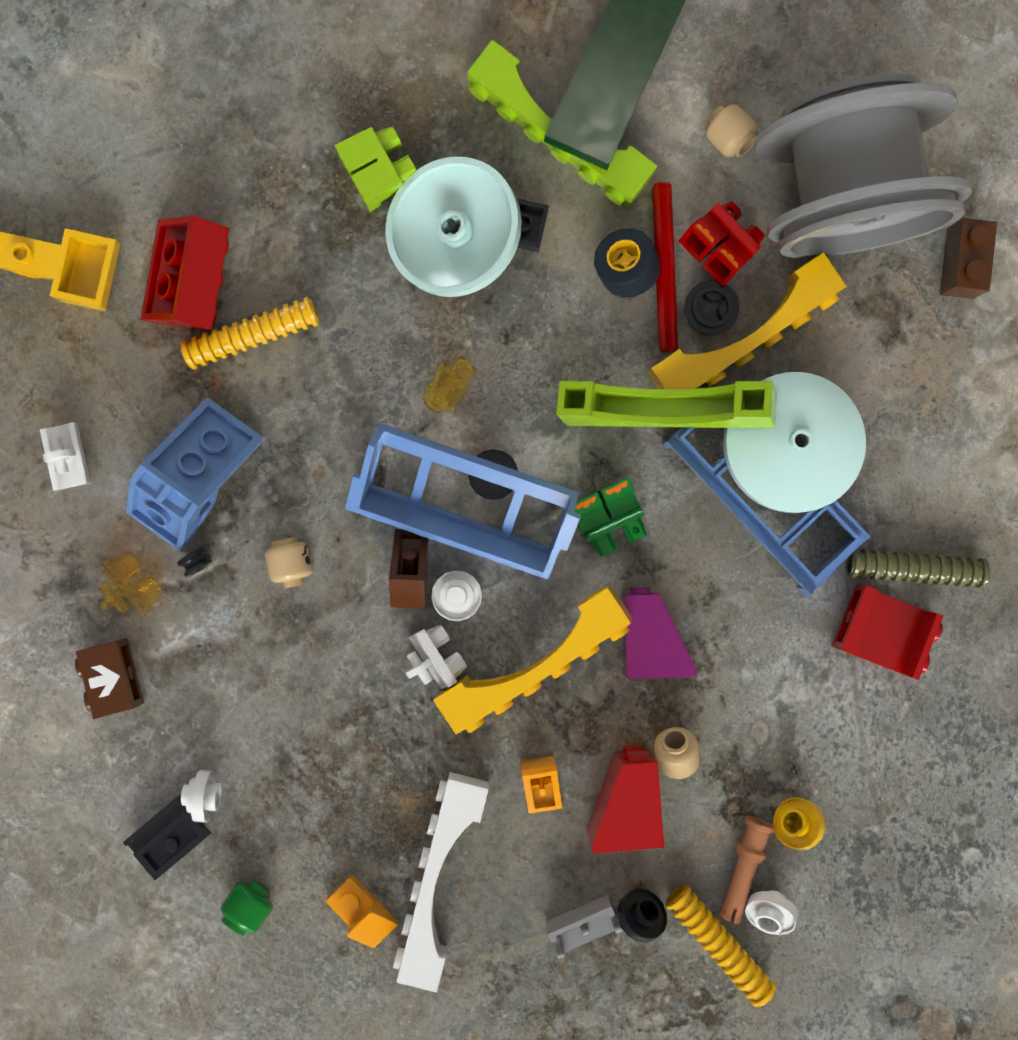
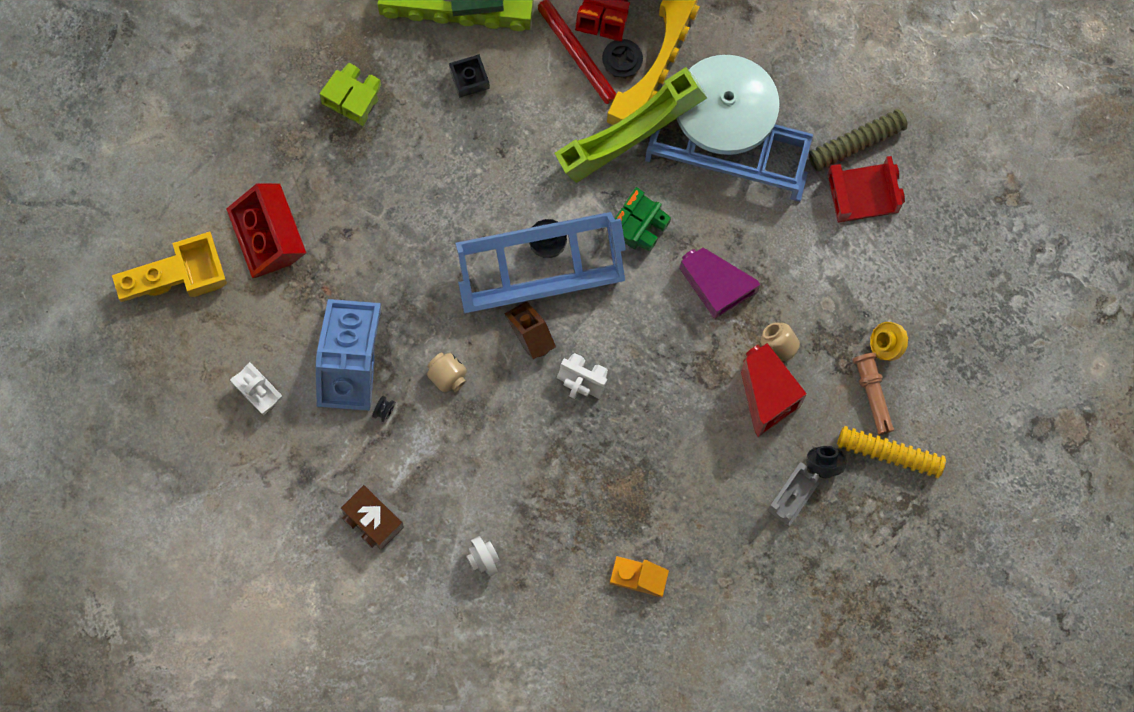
camera: 30 degrees left, 15 degrees down
(118, 574) = (347, 452): clear yellow hips -> none
(166, 838) = (475, 603): black plate -> none
(246, 907) = (558, 616): green head -> none
(249, 333) = (332, 242): yellow piece -> none
(423, 957) = (697, 577): white arch -> none
(437, 203) = (408, 90): light aqua dish -> none
(448, 385) = (485, 196): clear yellow hips -> none
(456, 595) = (572, 329): white plate -> none
(471, 700) = (623, 390): yellow arch -> none
(541, 784) = (705, 417): light orange slope -> none
(615, 260) = (551, 60): black wheel -> none
(771, 912) = (909, 409): white plate -> none

